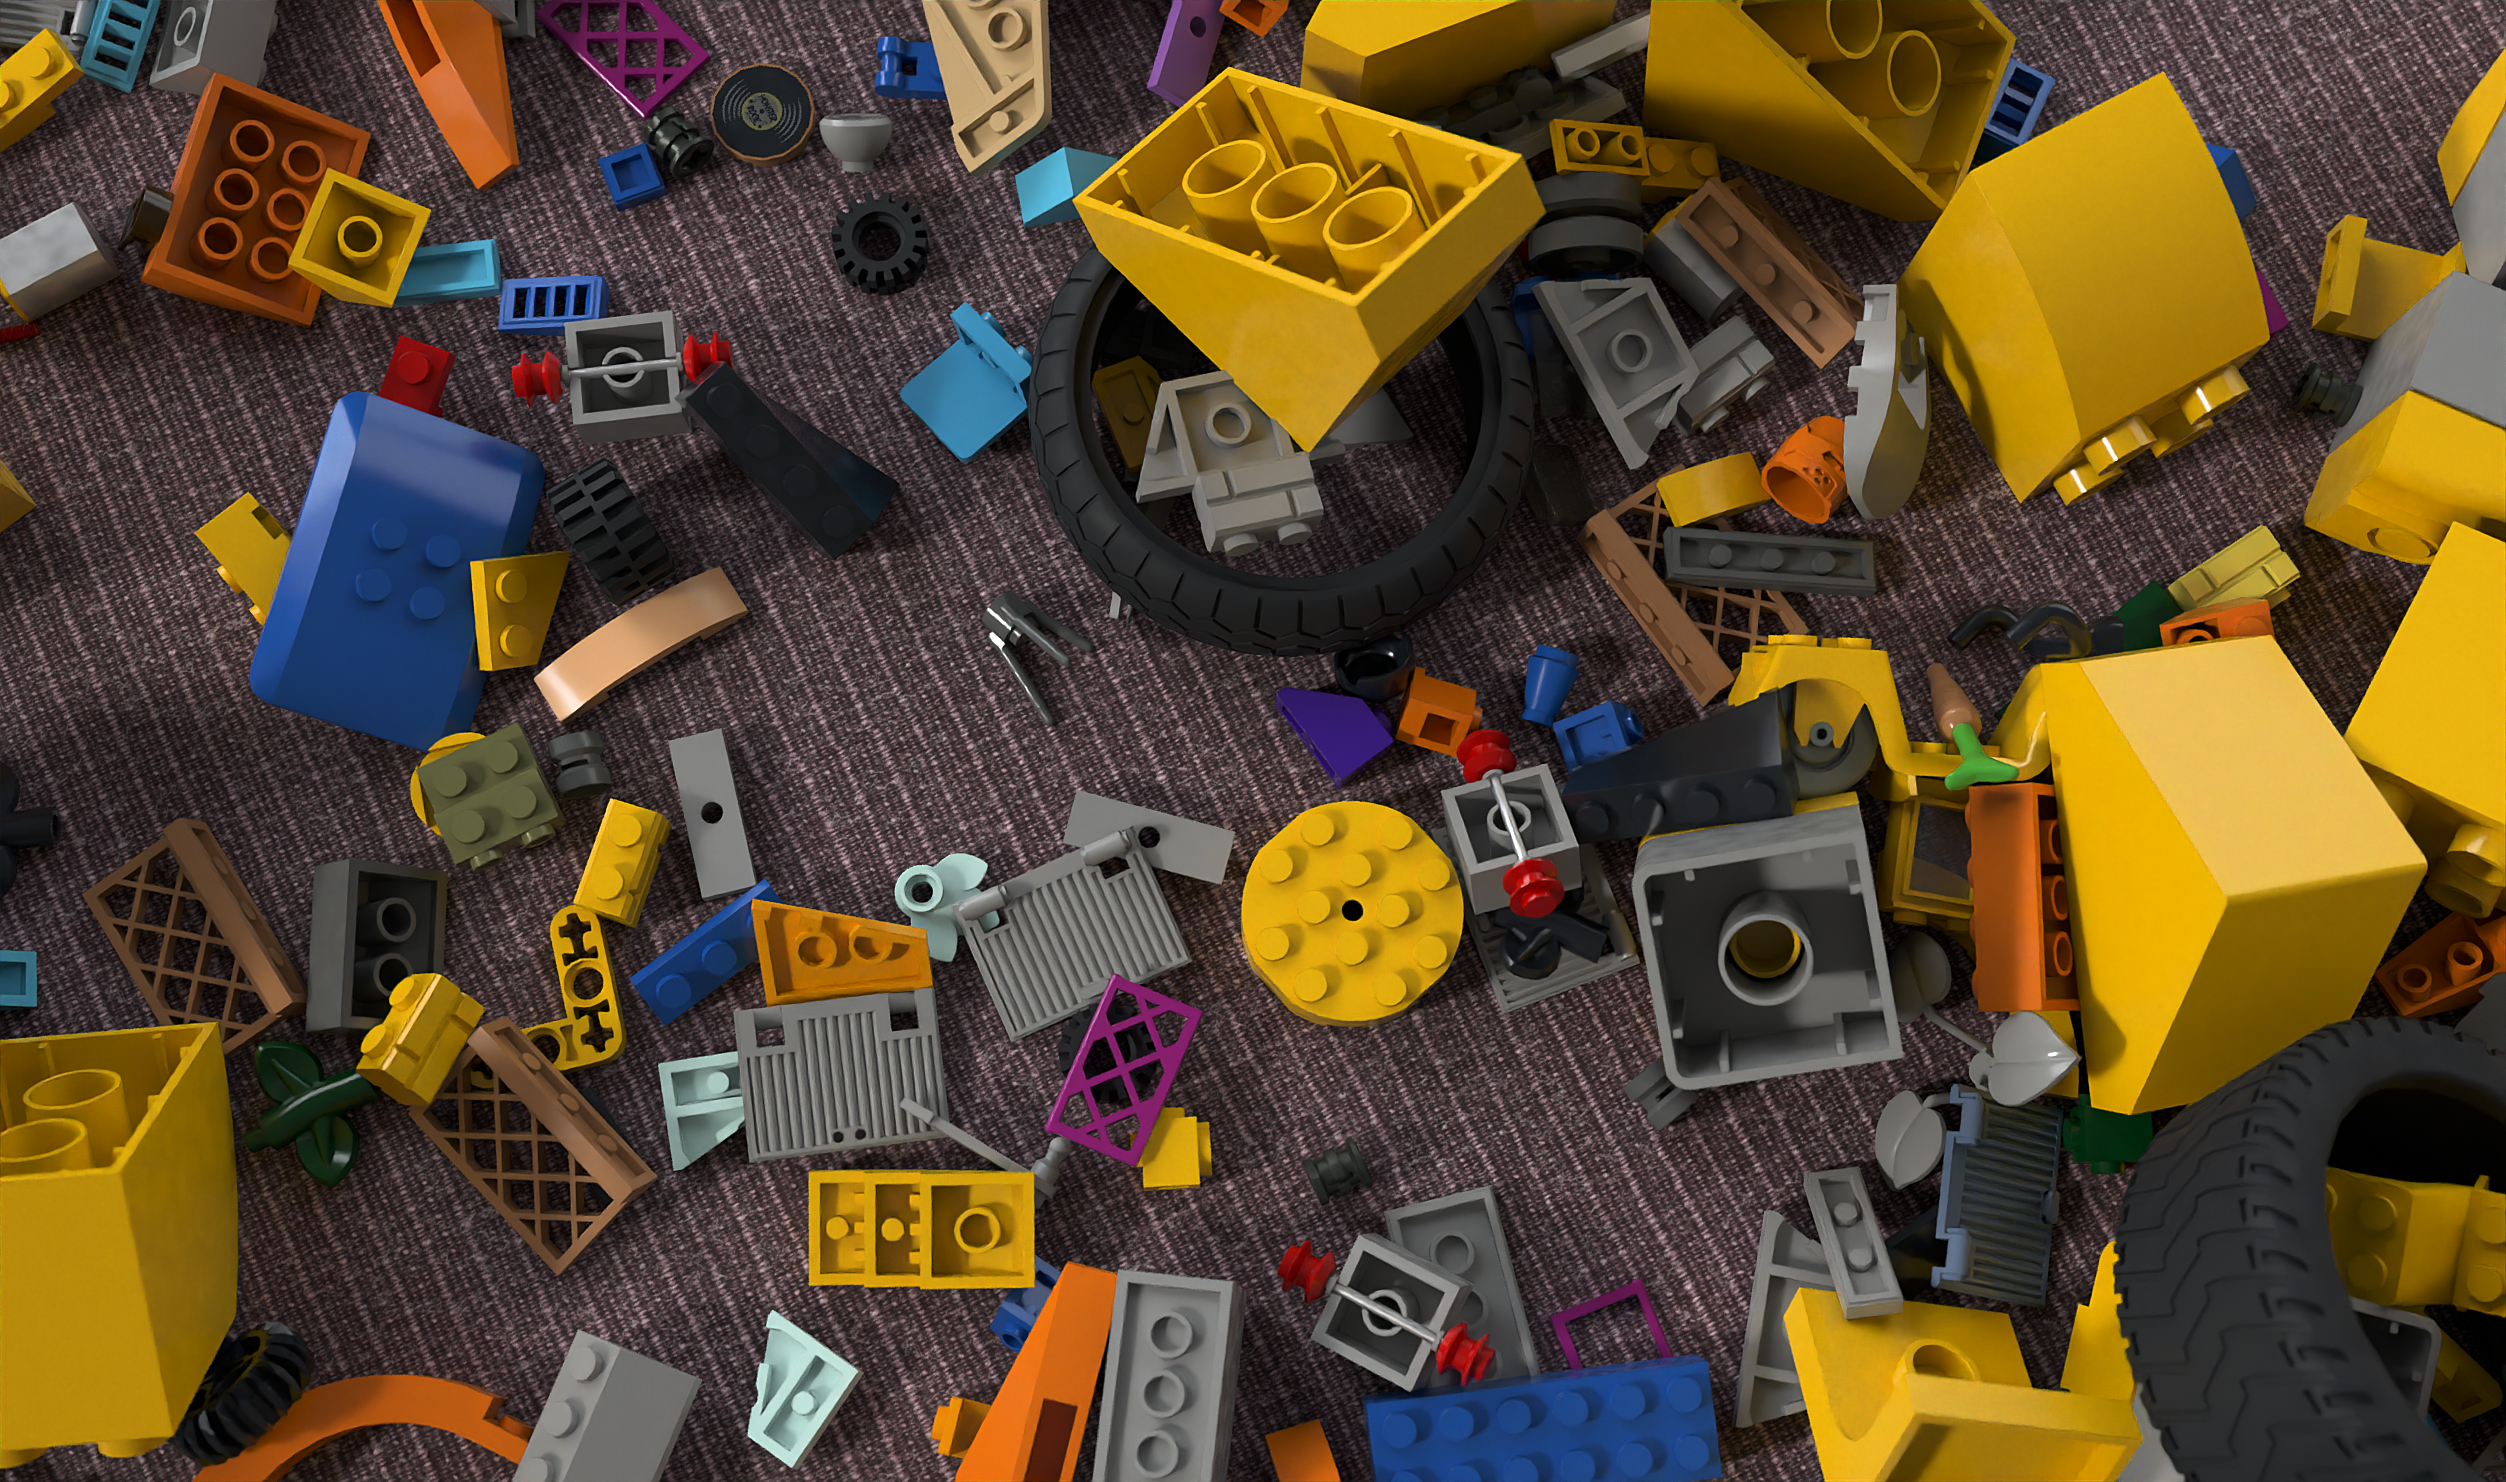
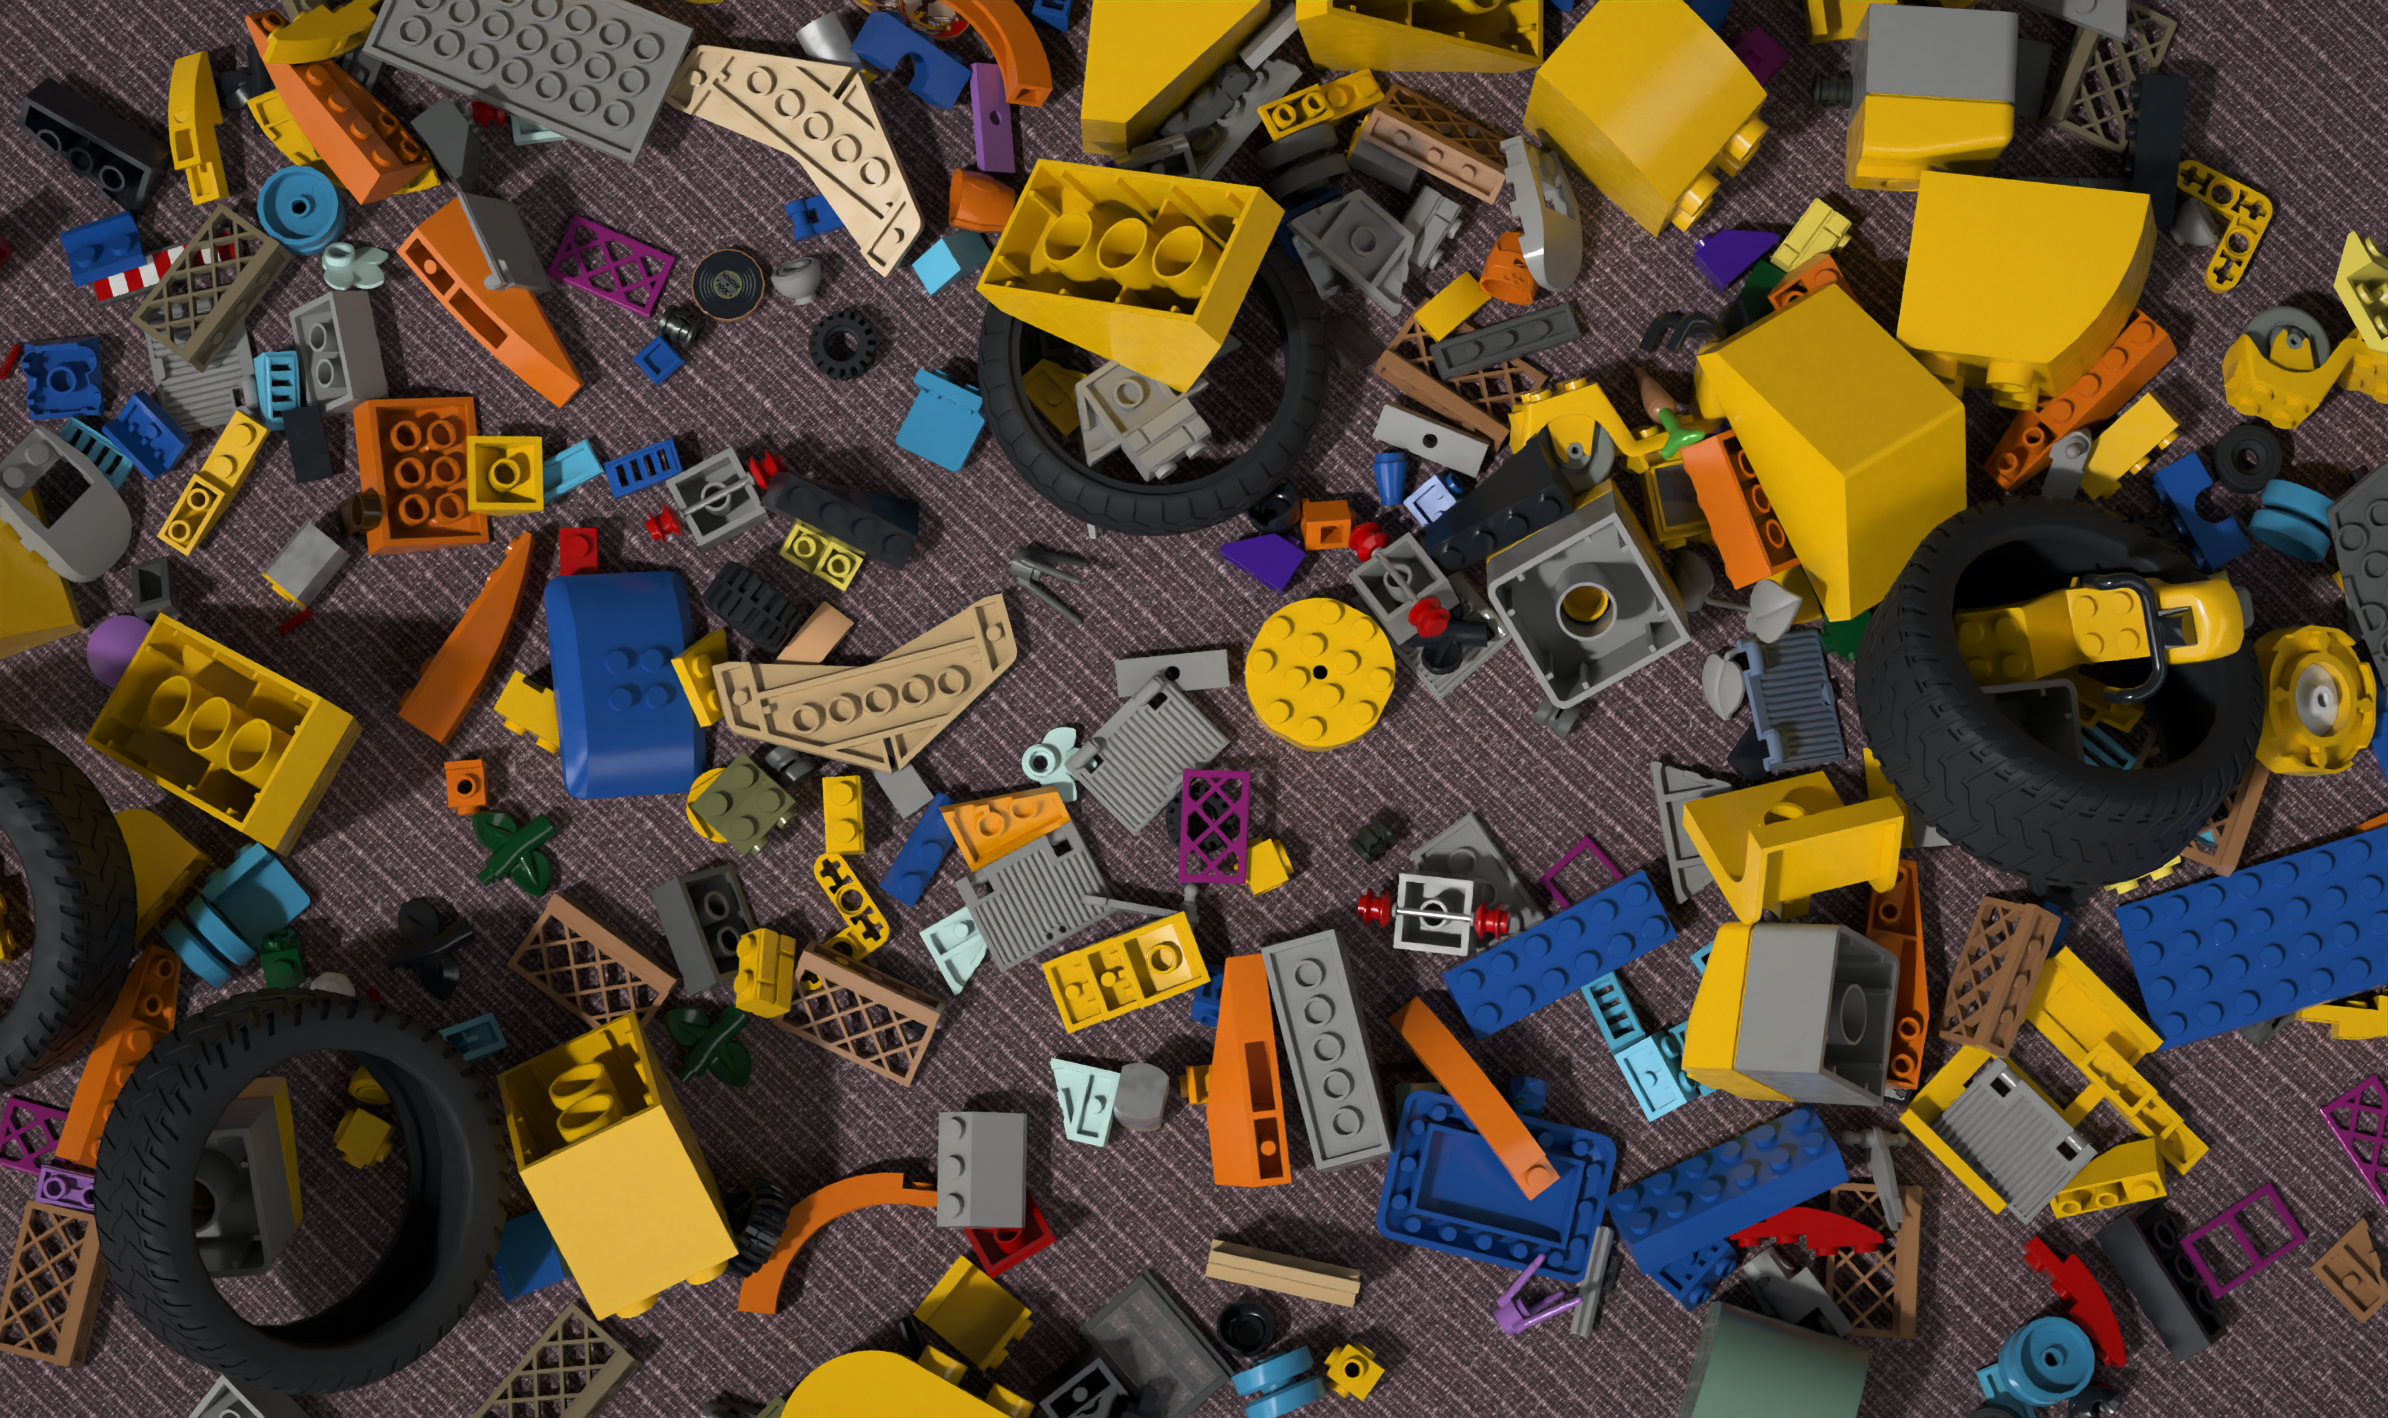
camera: 15 degrees left, 5 degrees up
(127, 110) = (308, 443): none -> black tile
(153, 630) = (478, 797): none -> orange brick
(161, 742) = (515, 850): none -> dark green plant
(215, 453) = (471, 652): none -> orange wedge
(694, 722) = (853, 709): none -> tan wing
(737, 506) = (820, 557): none -> light yellow slope
(871, 1416) = (1141, 1097): none -> flat silver piece
(1126, 116) = (979, 202): none -> orange helmet
(1594, 632) = (1409, 430): none -> light grey tile
(1852, 1243) = (1708, 762): light grey tile -> none
(2119, 559) = (1731, 254): none -> dark purple slope

